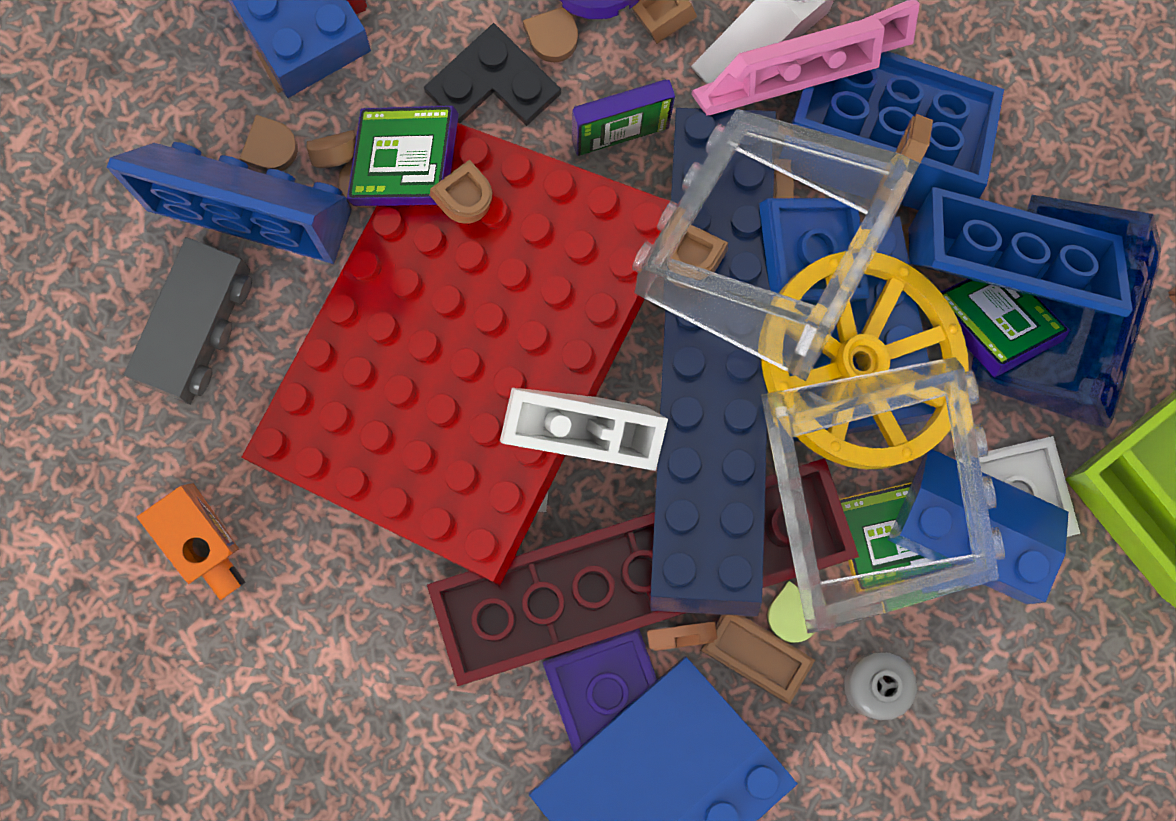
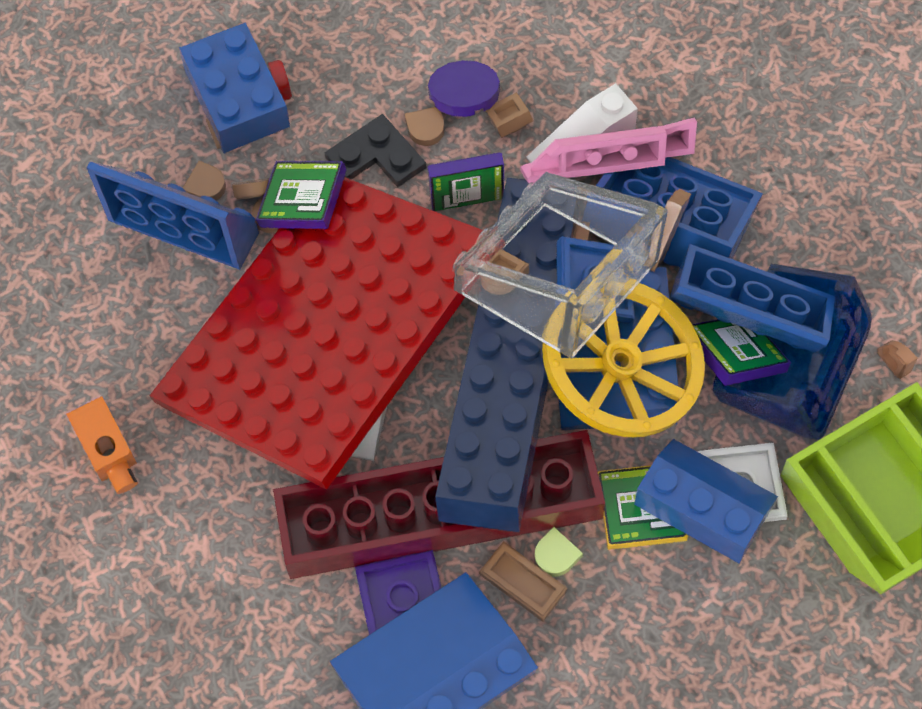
camera: 15 degrees right, 15 degrees down
(189, 321) = (126, 296): dark grey brick -> none
(463, 194) = (340, 219): medium nougat tile -> none
(584, 427) = (402, 375): white slope -> none
(682, 636) = (464, 556): nougat tile -> none
(848, 399) = (552, 451): clear windscreen -> none
(862, 681) = (608, 619): light grey head -> none

